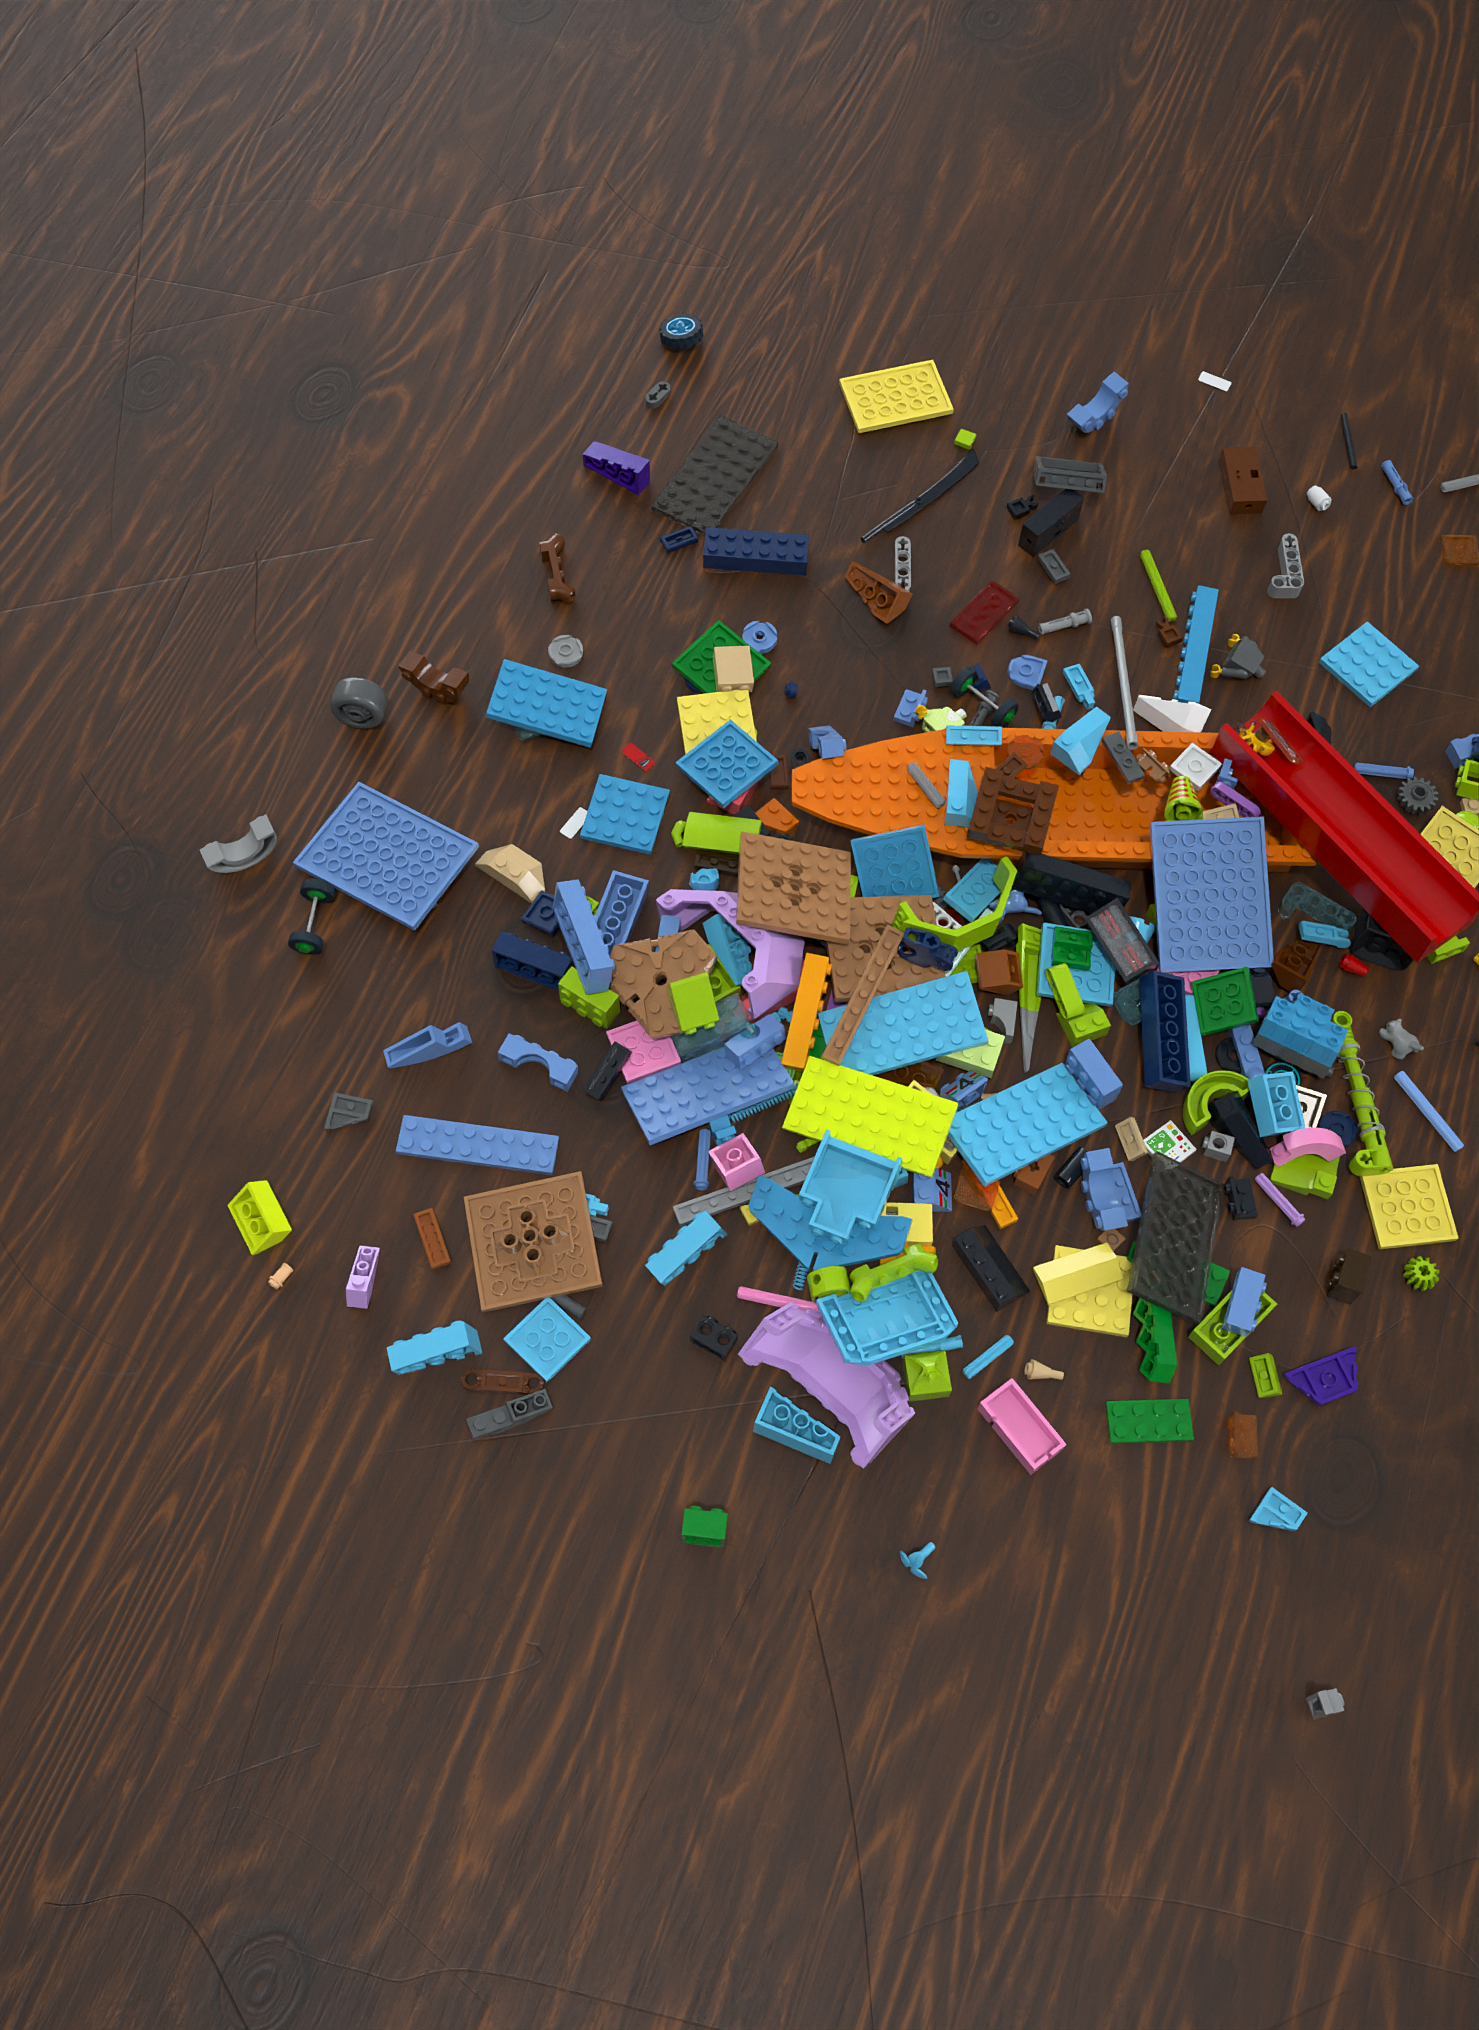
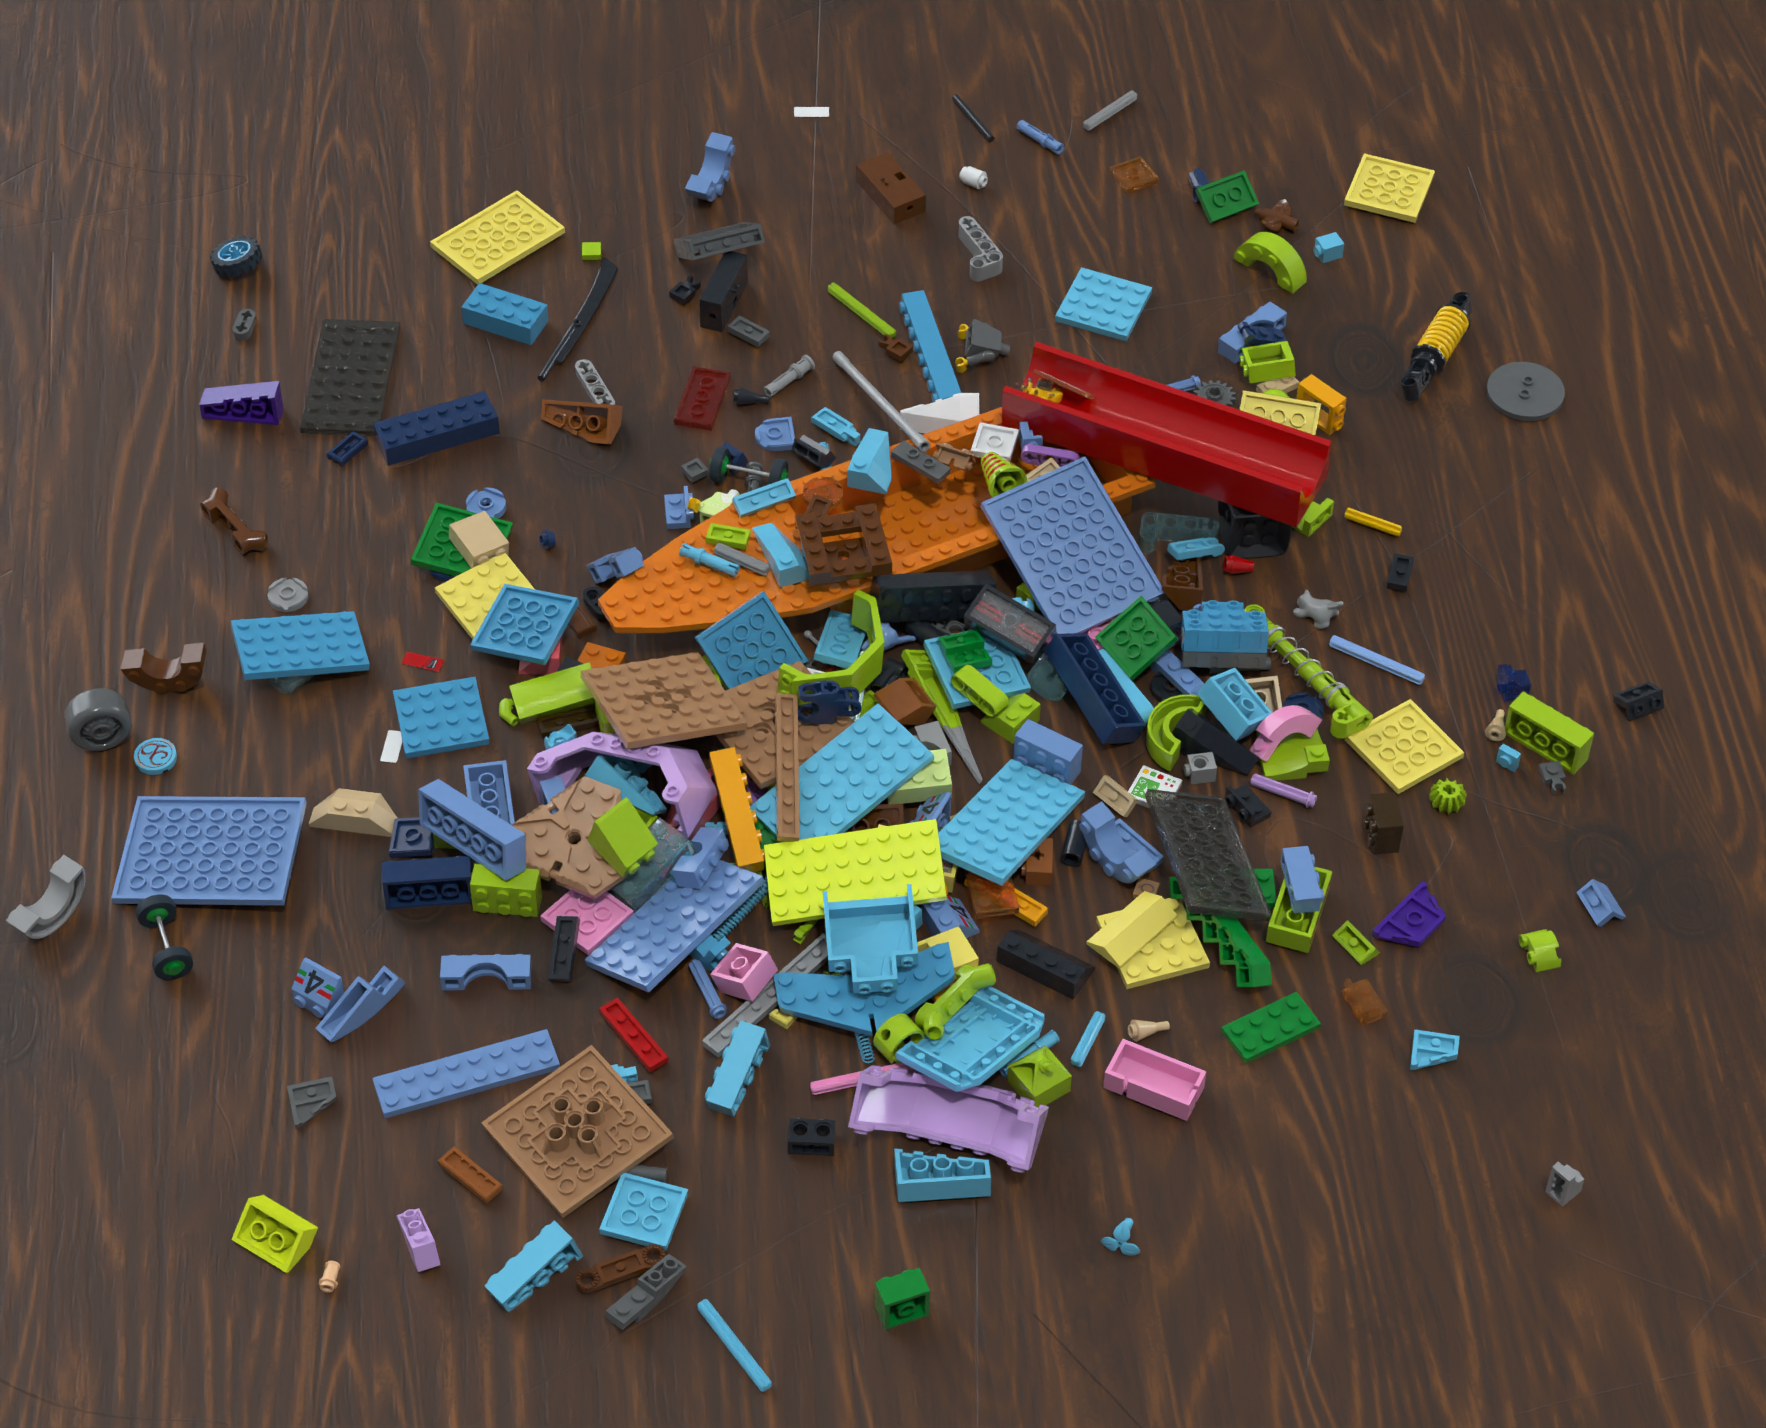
camera: 25 degrees left, 15 degrees down
(392, 751) = (155, 756): none -> medium azure tile
(398, 1017) = (316, 988): none -> medium blue slope
(554, 1497) = (734, 1345): none -> medium azure axle
(623, 1174) = (633, 1035): none -> red plate
(864, 469) = (505, 314): none -> dark azure brick
(894, 769) = (700, 556): none -> medium azure pin
(925, 759) = (728, 535): none -> lime plate
(1427, 1461) = (1541, 949): none -> lime cylinder

